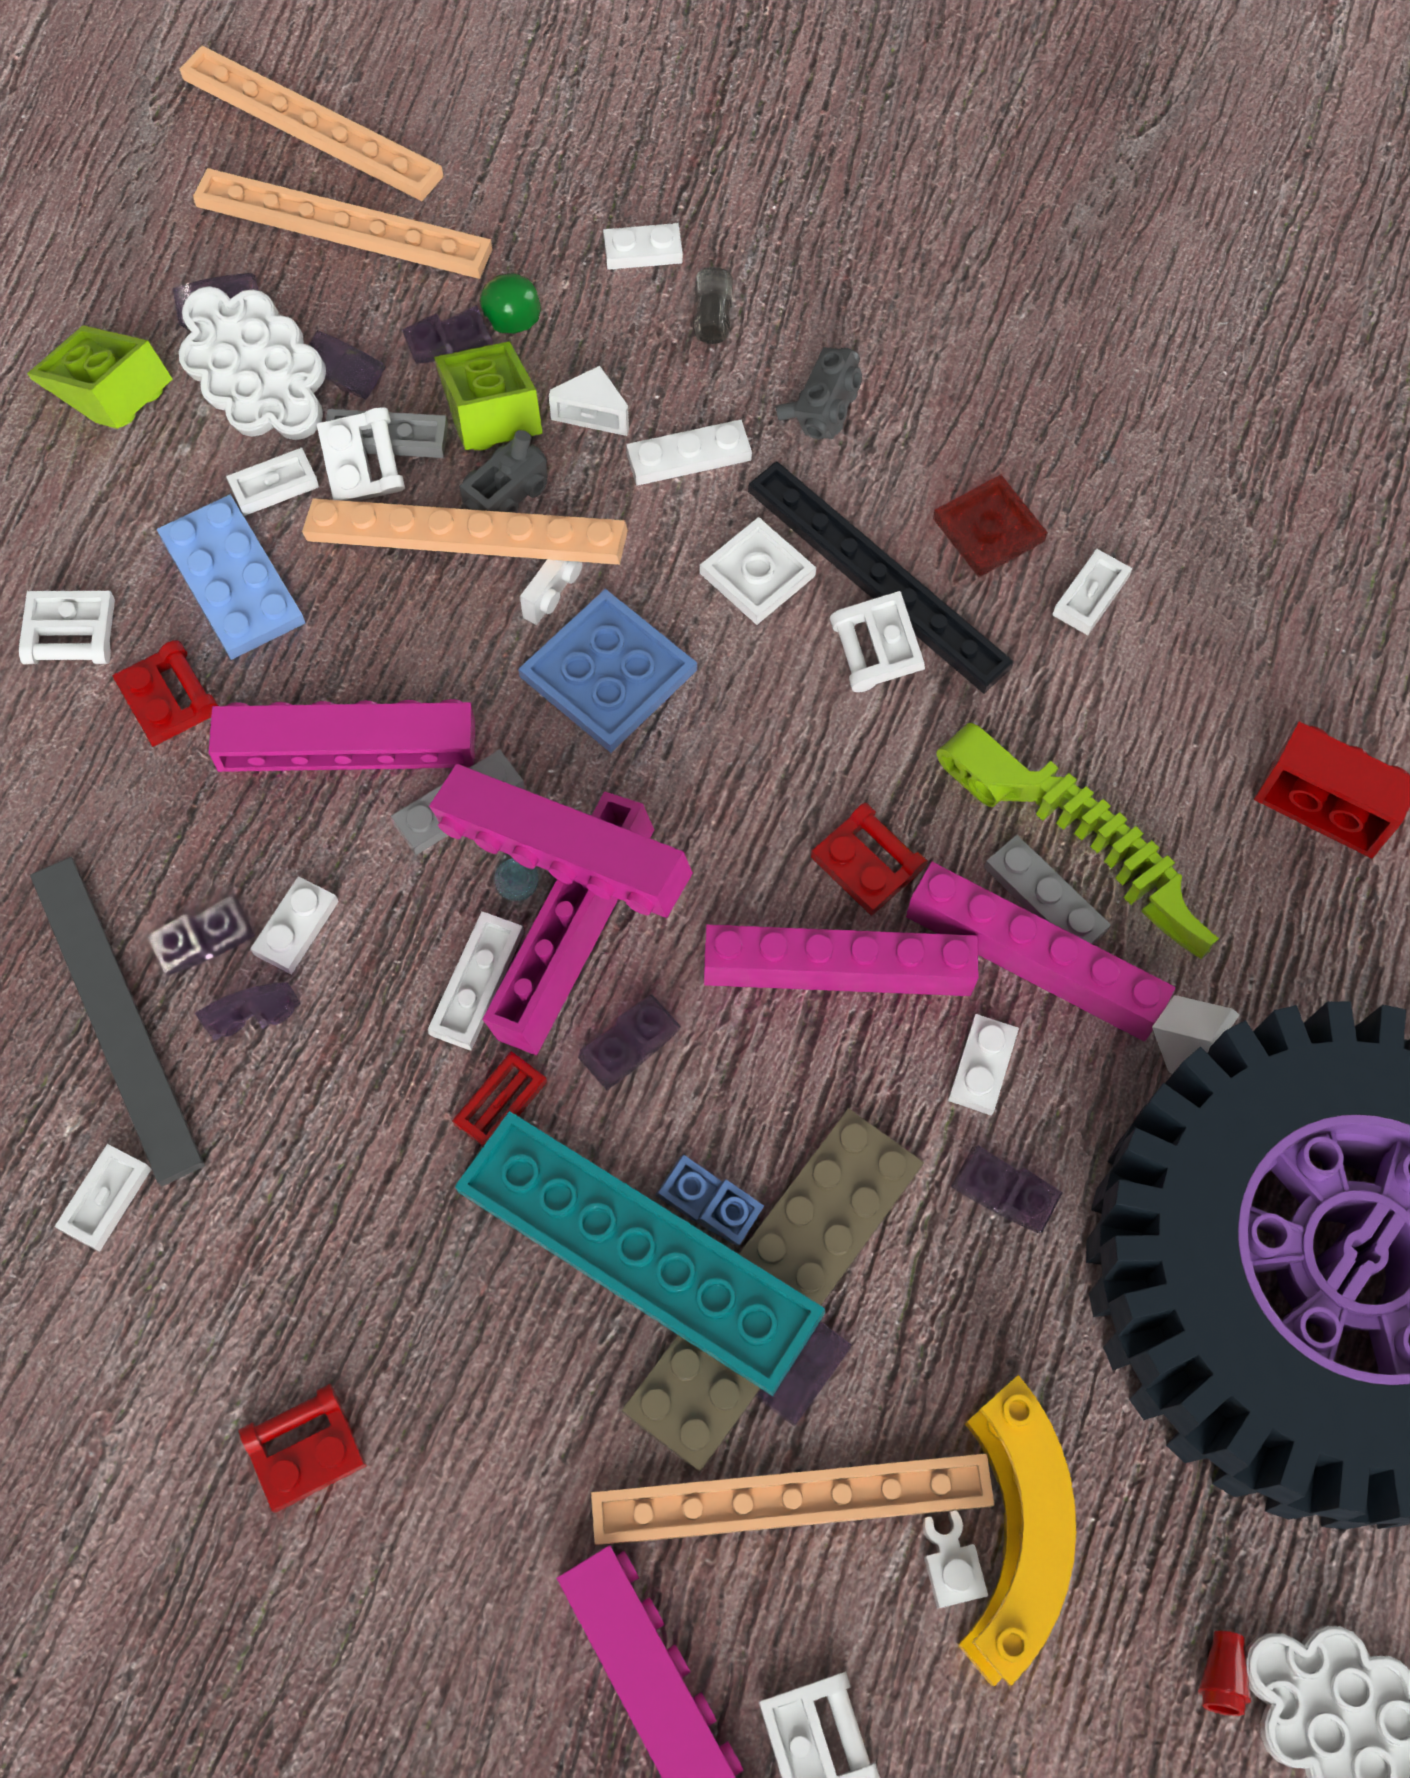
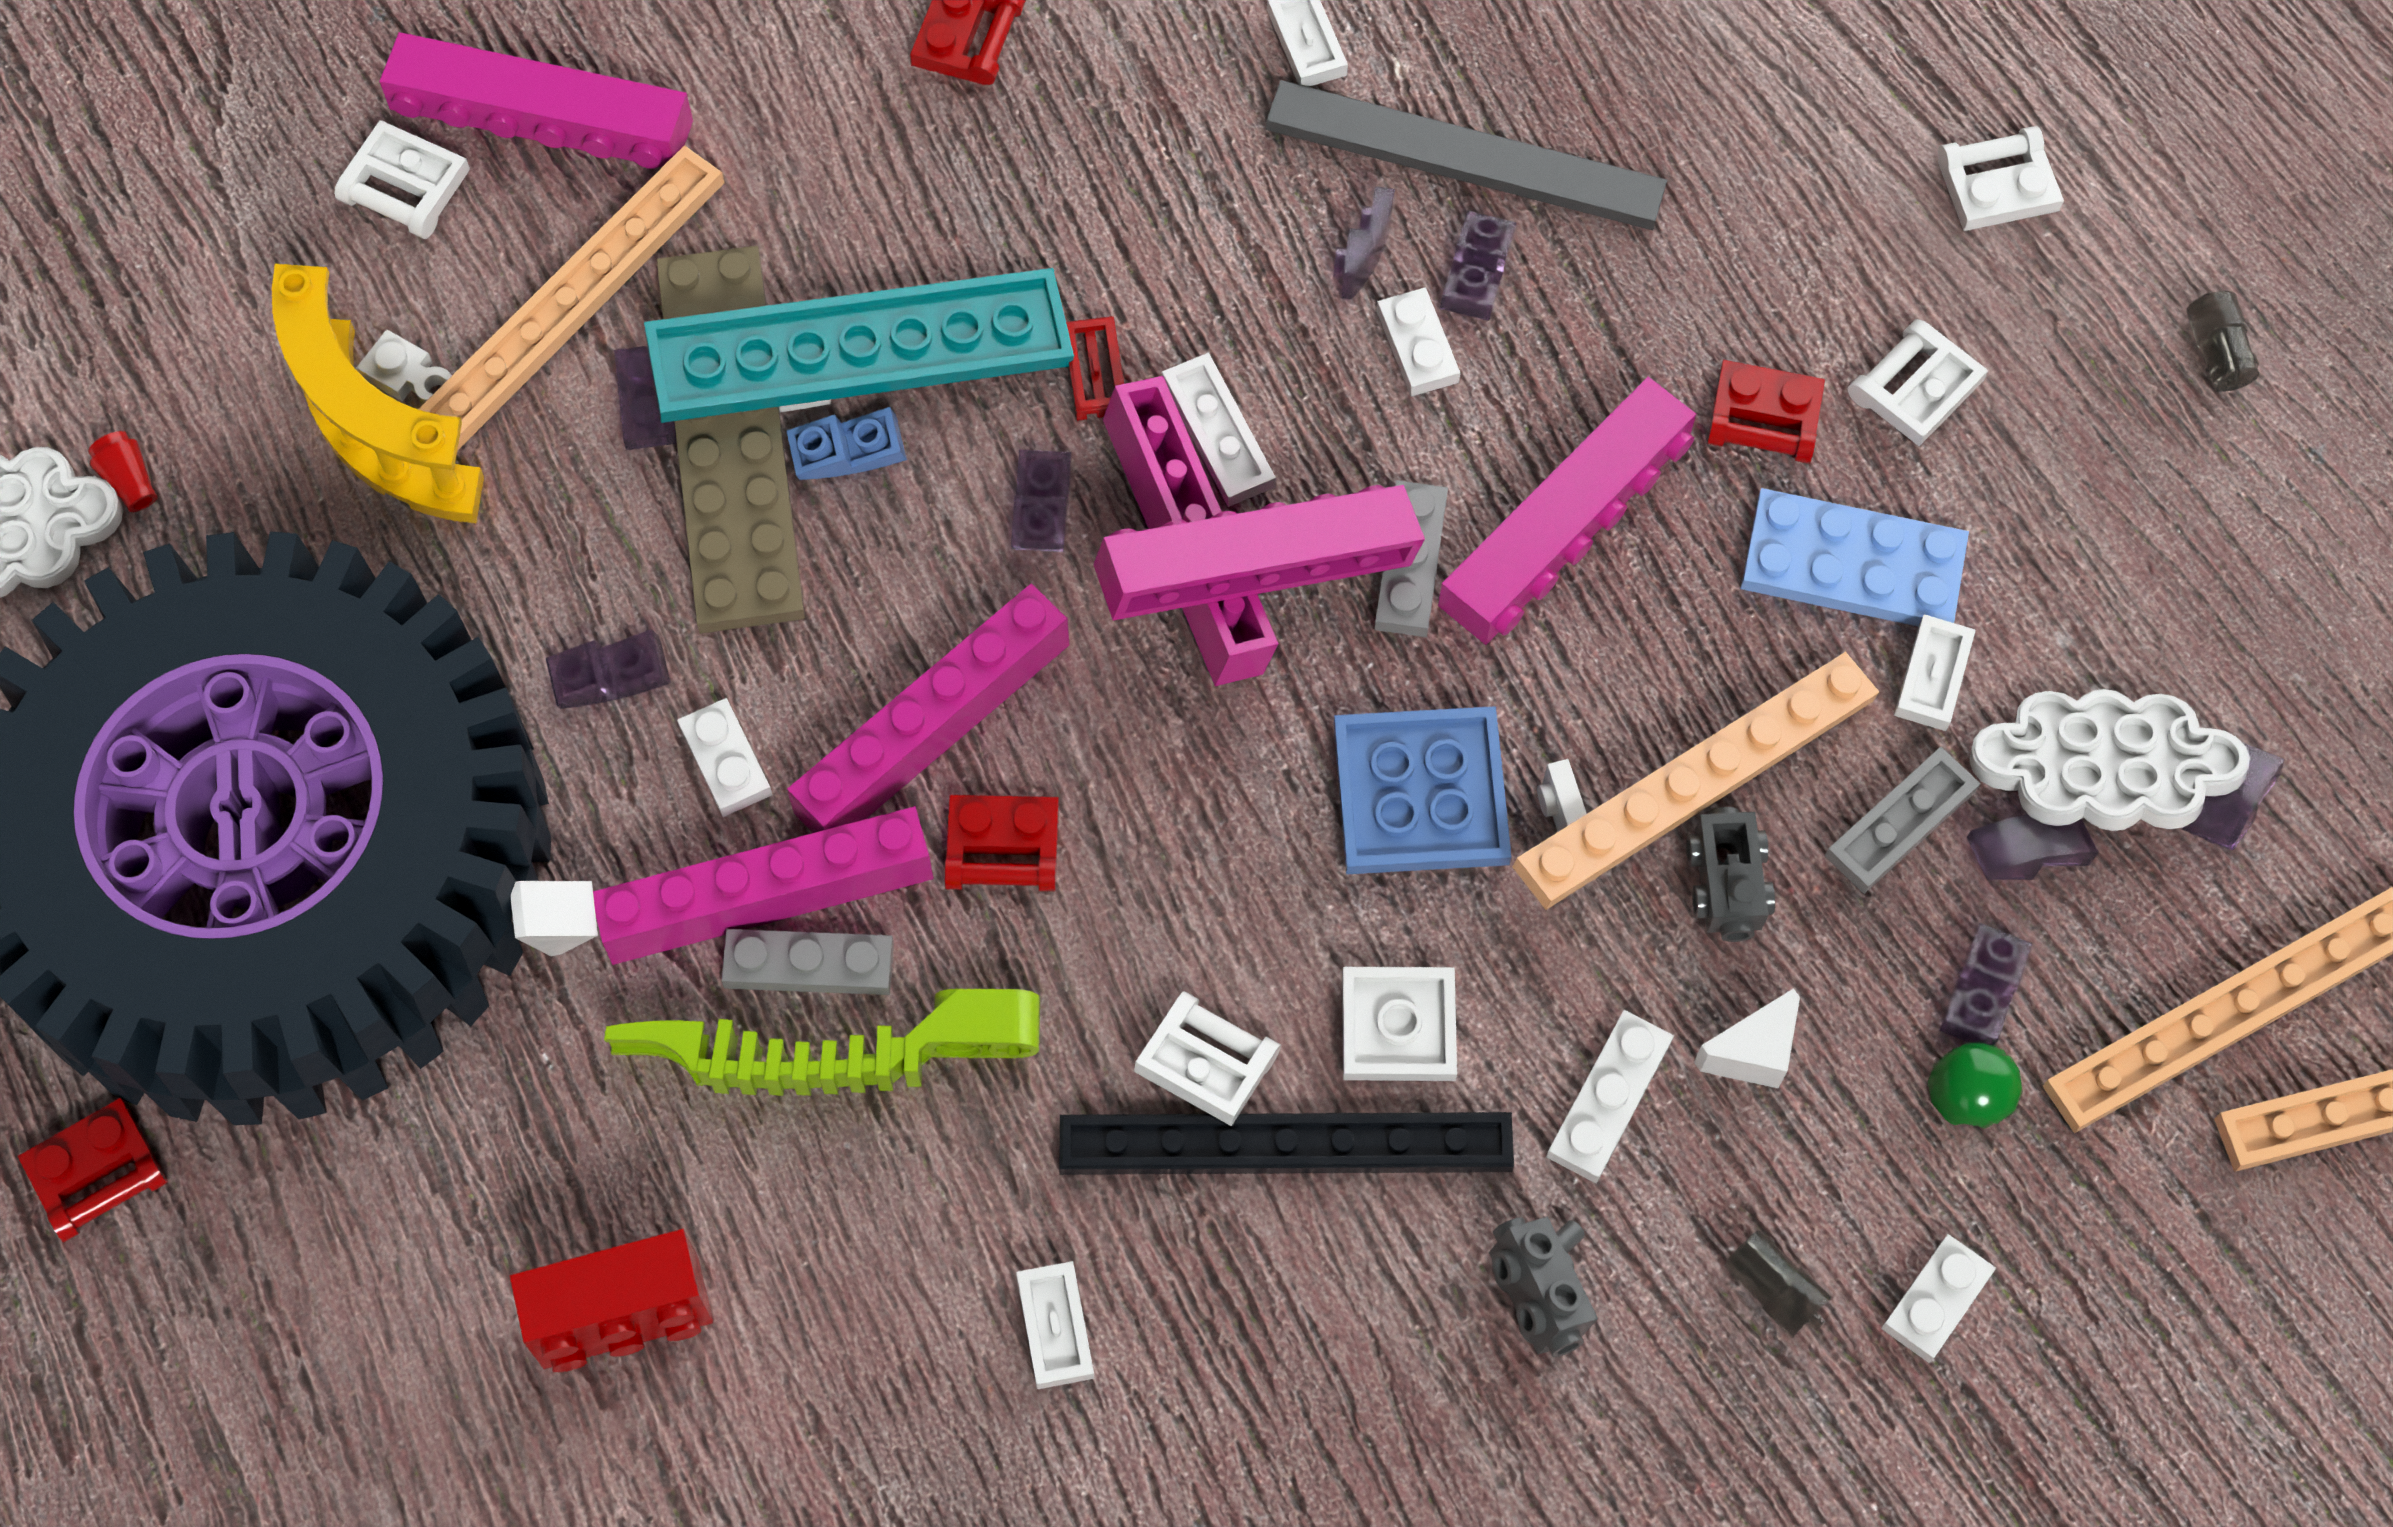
camera: 135 degrees right, 0 degrees up
(103, 375) = (2221, 615): lime slope -> none
(347, 457) = (1891, 751): white plate -> none
(489, 395) = (1865, 953): lime slope -> none
(990, 525) = (1229, 1301): clear red plate -> none

